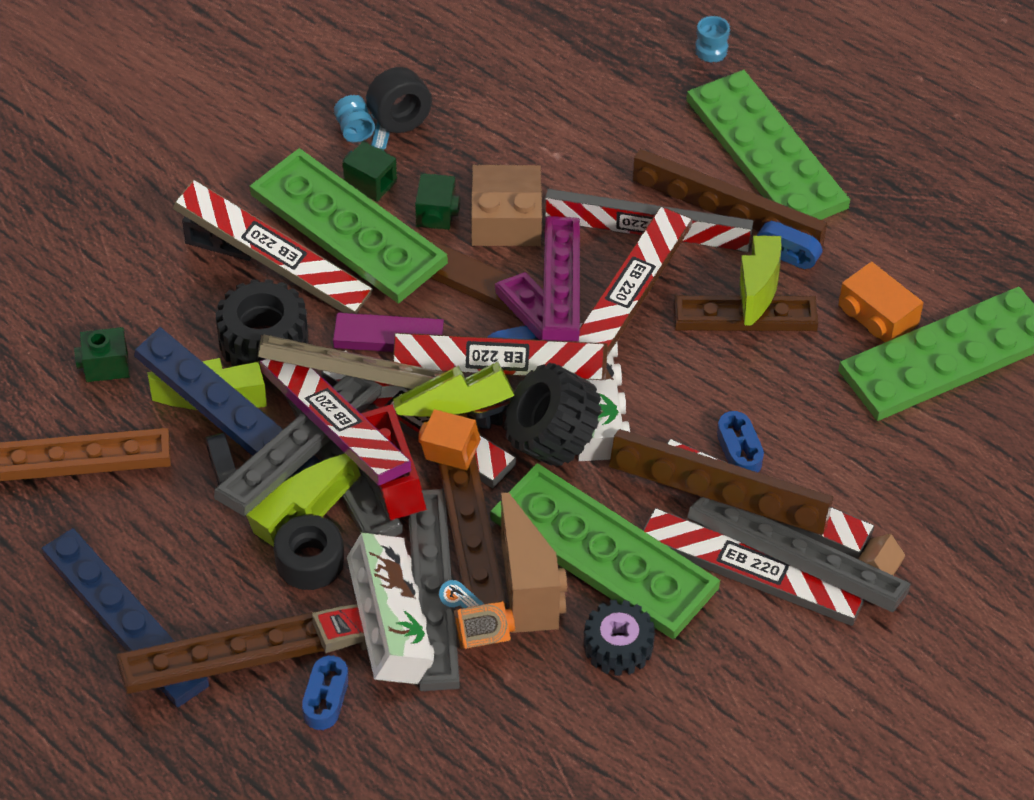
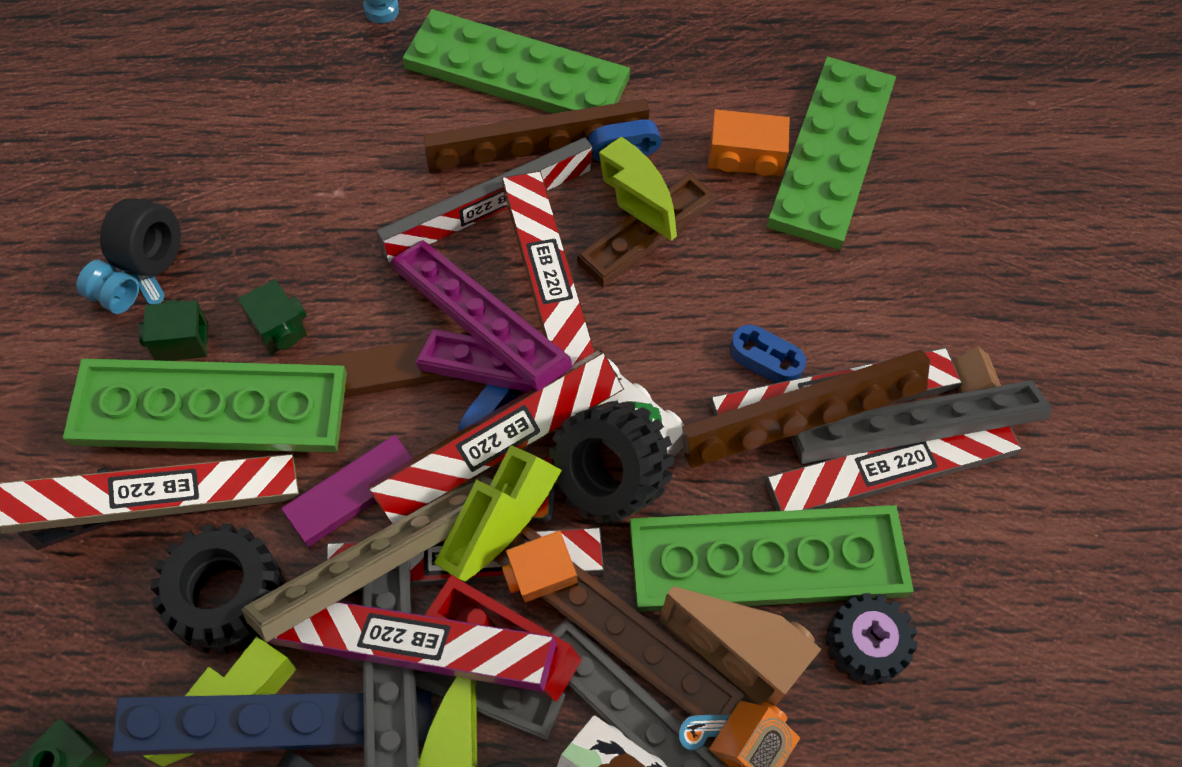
camera: 45 degrees left, 10 degrees up
(506, 205) = (343, 271): medium nougat slope -> none

